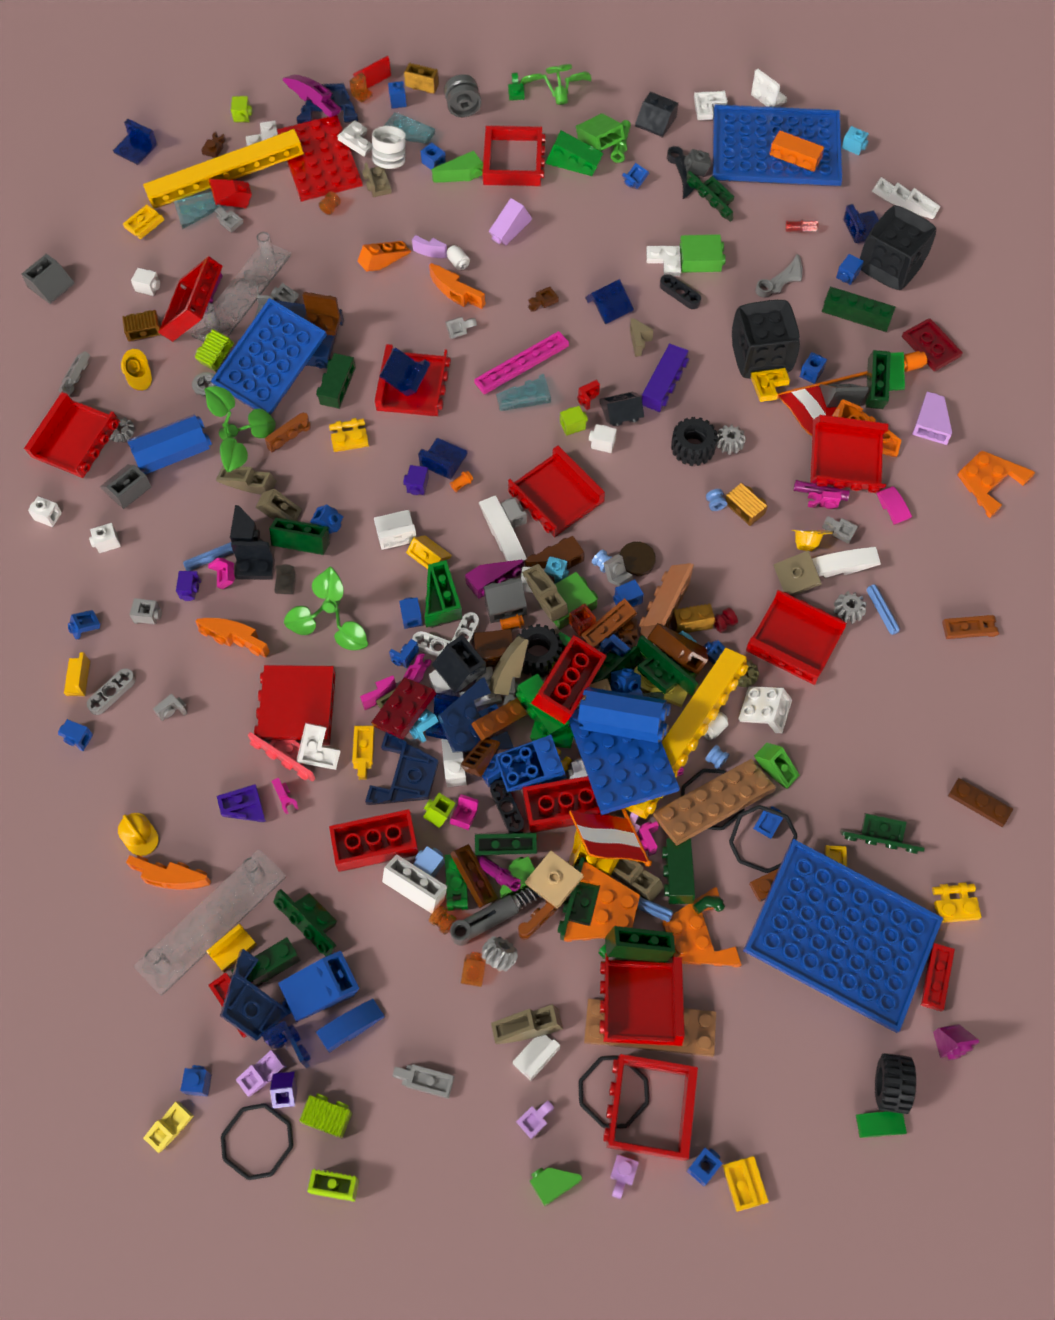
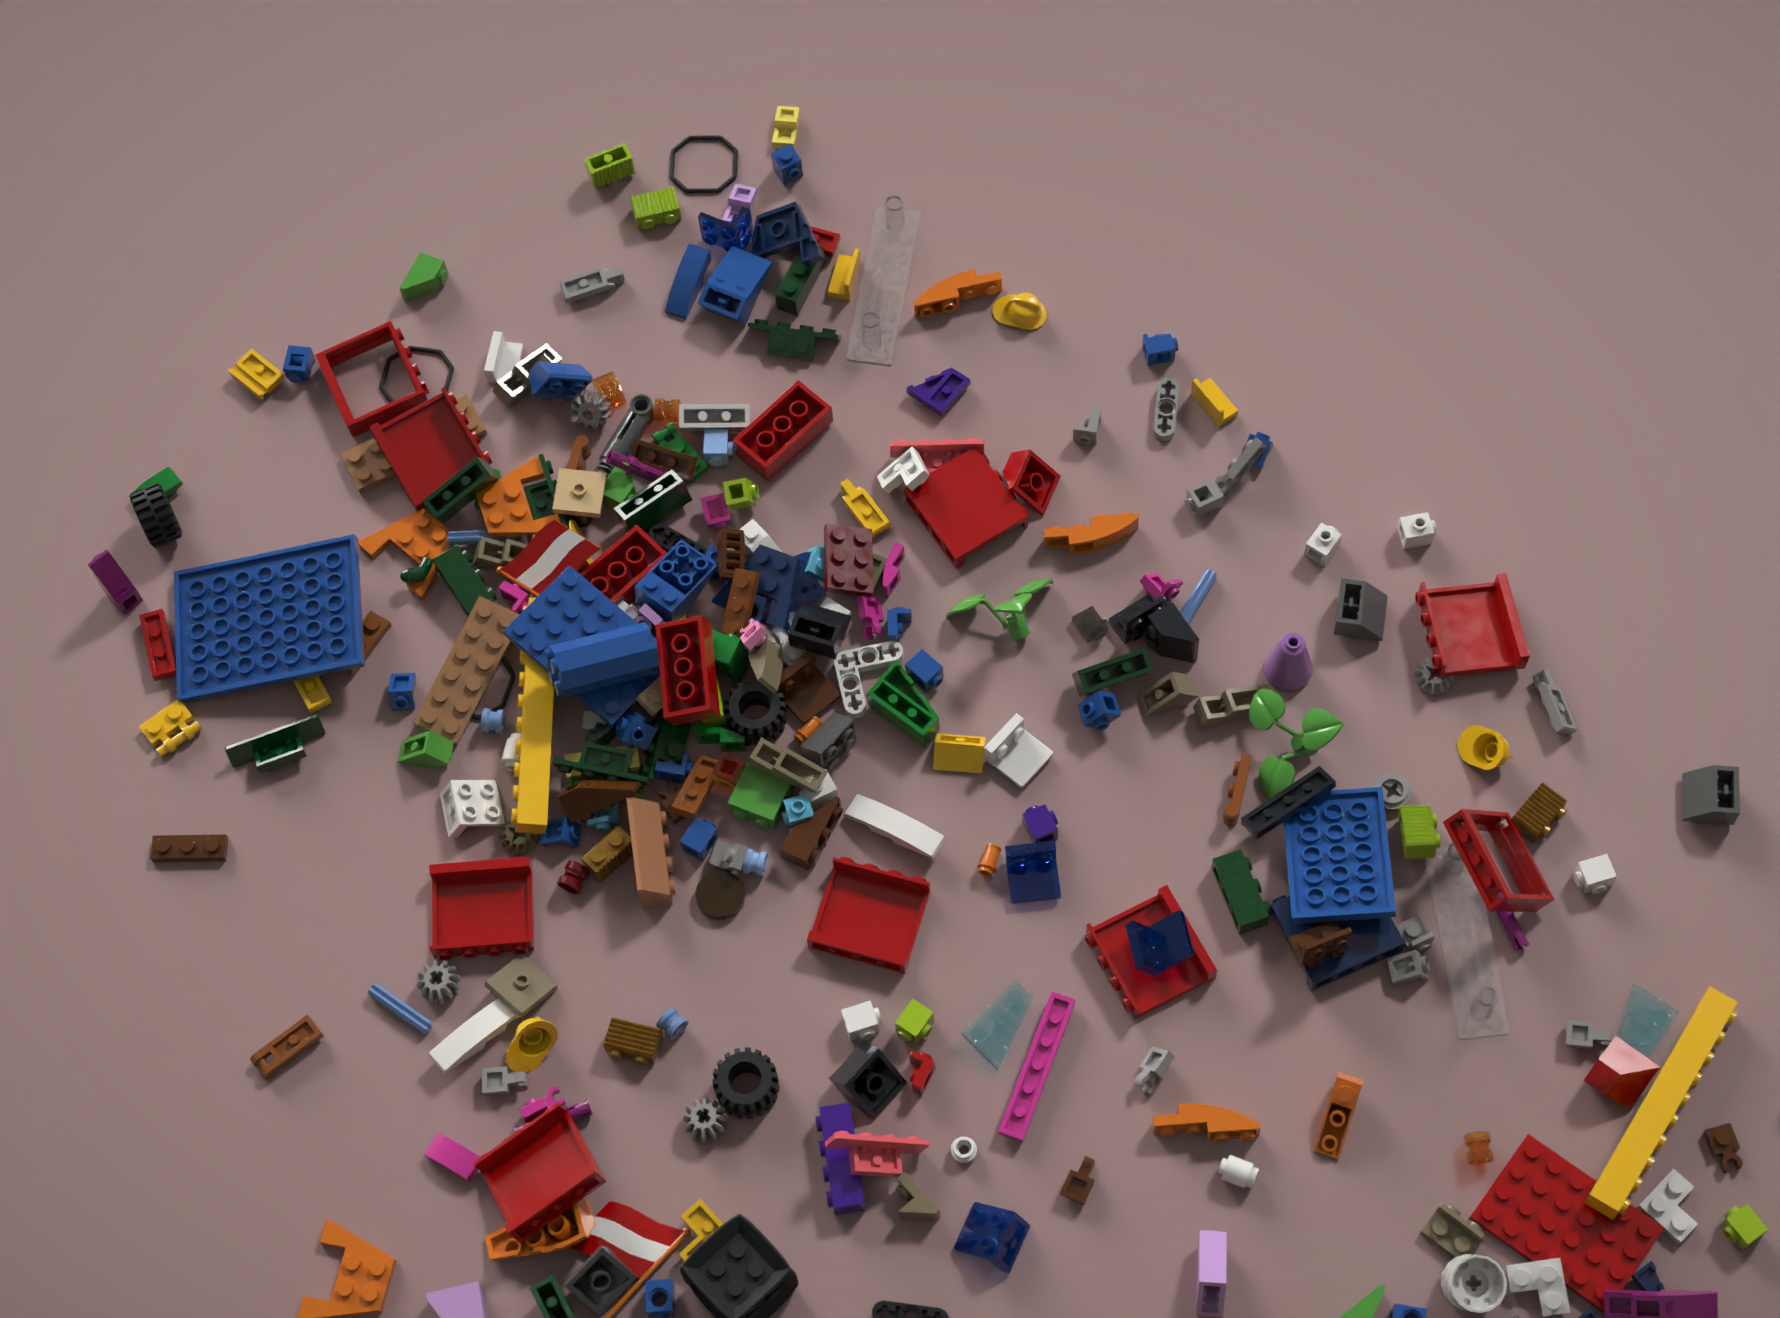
camera: 150 degrees right, 0 degrees up
(103, 613) = (1239, 467): none -> light grey hinge
(143, 221) = (1689, 959): yellow plate -> none
(169, 444) = (1354, 675): blue brick -> none
(188, 585) = (1187, 551): dark purple brick -> none
(193, 479) = (1289, 663): none -> medium lavender cone
(241, 696) = (1031, 479): none -> red slope
(269, 400) = (1288, 802): none -> black plate
(282, 791) = (910, 421): dark pink plate -> none
(283, 1090) = (706, 200): dark purple brick -> none
(348, 439) = (1163, 832): yellow plate -> none
(412, 776) = (793, 512): dark blue wing -> none
(432, 249) = (1281, 1165): lavender slope -> none
(492, 573) = (871, 762): magenta slope -> none
(507, 681) = (753, 634): none -> bright pink plate
(507, 990) = (558, 380): none -> blue slope
(514, 512) = (899, 855): light grey brick -> none
(532, 1120) = (471, 310): lavender plate -> none
(566, 752) = (648, 616): none -> lavender tile
(593, 347) = (963, 1142): none -> white plate
(623, 1173) = (368, 319): lavender plate -> none
(644, 358) = (876, 1154): none -> coral bracket
(736, 828) = (404, 688): black piece -> none

